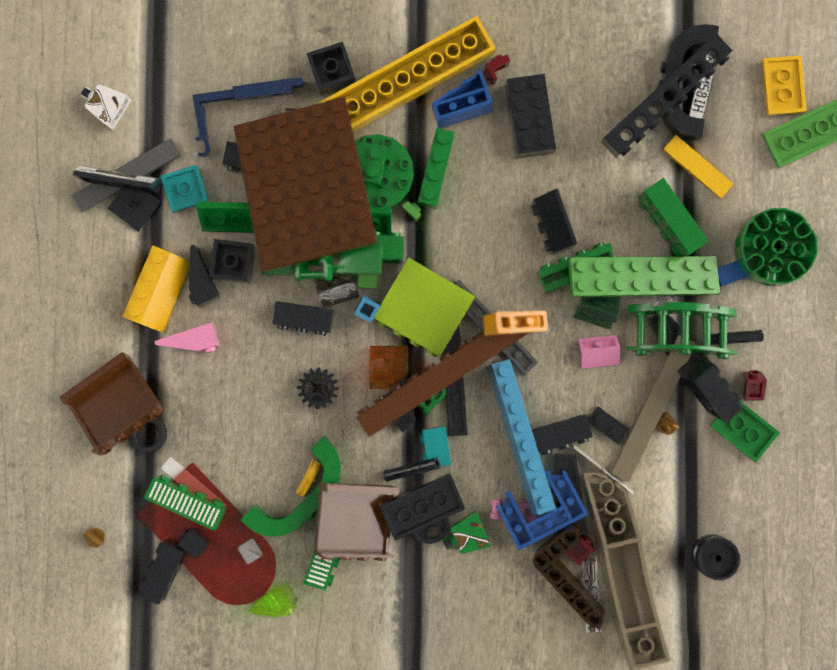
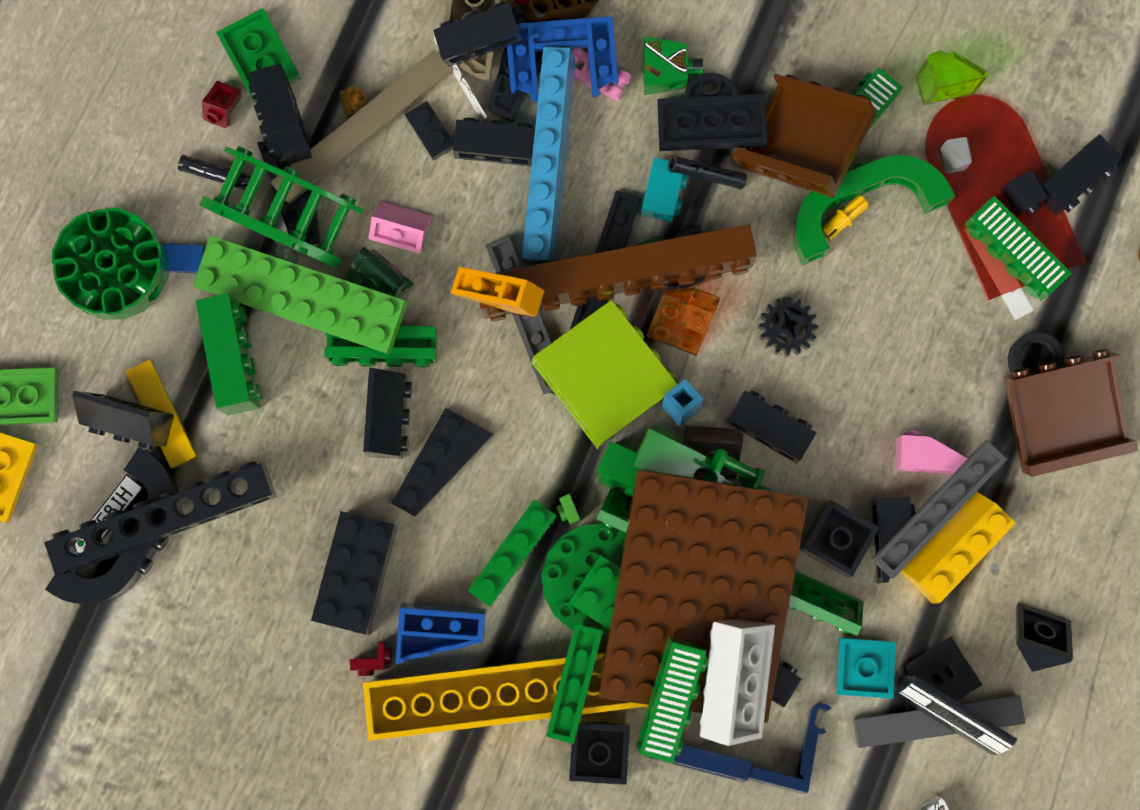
camera: 160 degrees left, 5 degrees down
(79, 252) = (1043, 638): none -> black slope
(174, 305) = (939, 509): none -> dark grey tile
(262, 138) = (737, 681): none -> white slope
(299, 111) = (671, 700): none -> green brick
(363, 99) = (574, 683): none -> green plate
(506, 215) = (440, 460): none -> black wing
(603, 498) = (478, 34): none -> black brick
(720, 151) = (122, 419): none -> black slope

